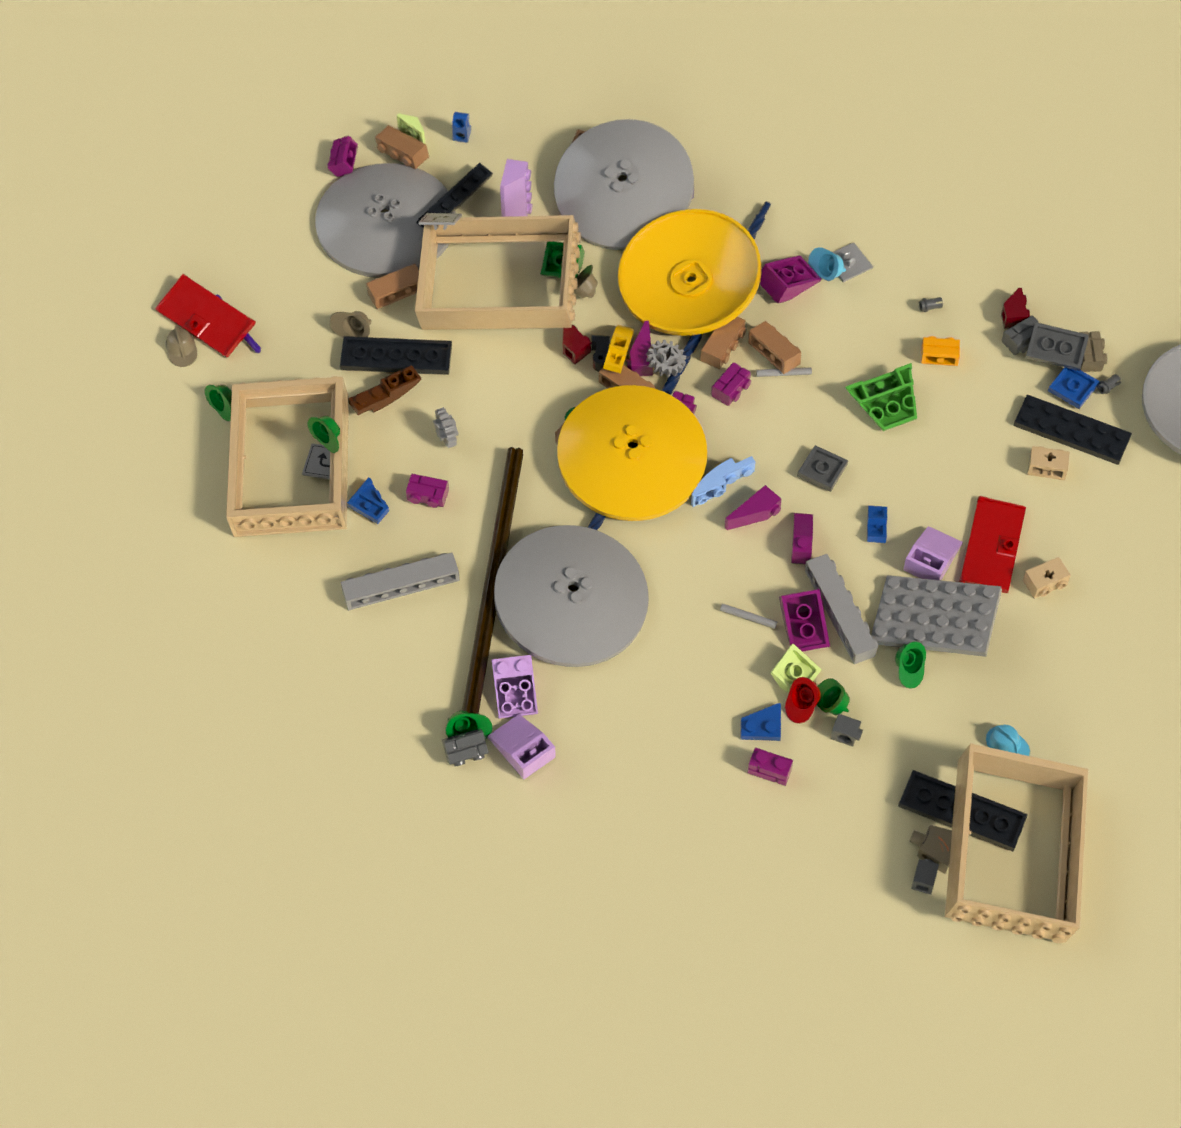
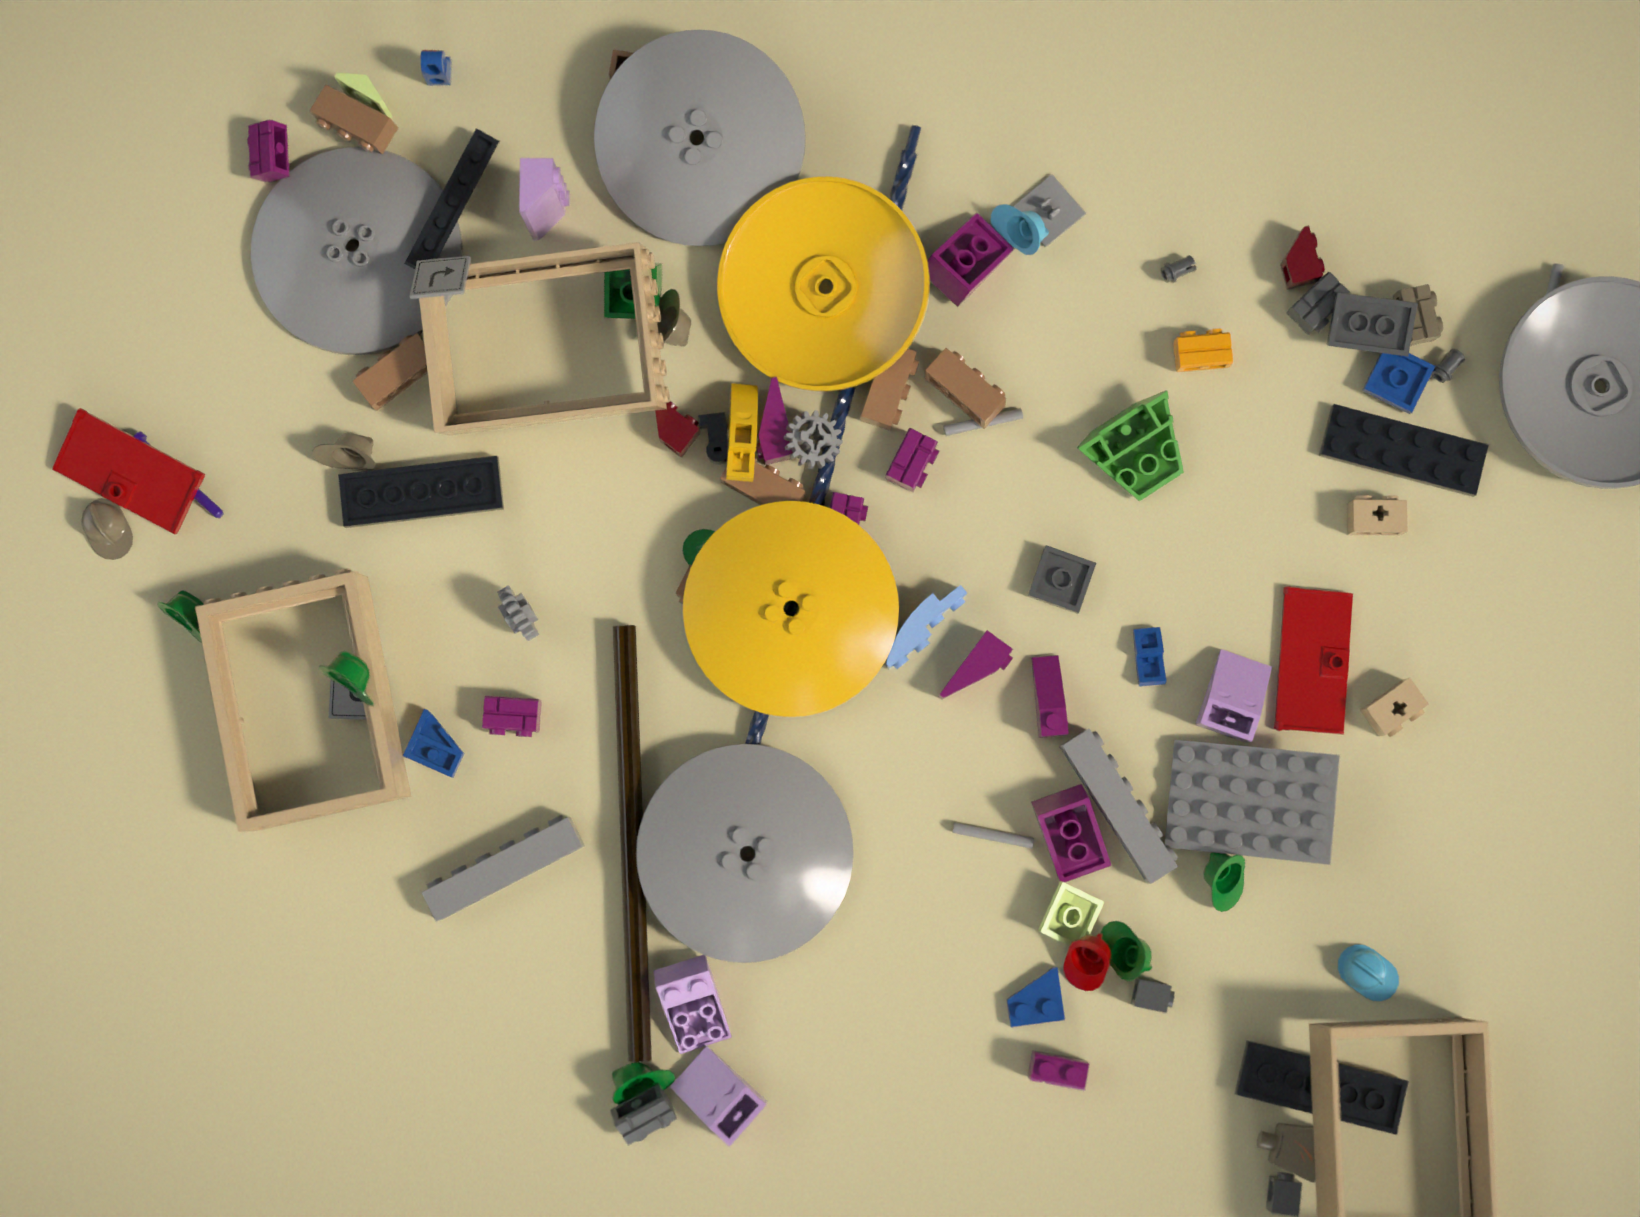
camera: 10 degrees left, 25 degrees up
(386, 392) = (418, 560): reddish brown slope -> none

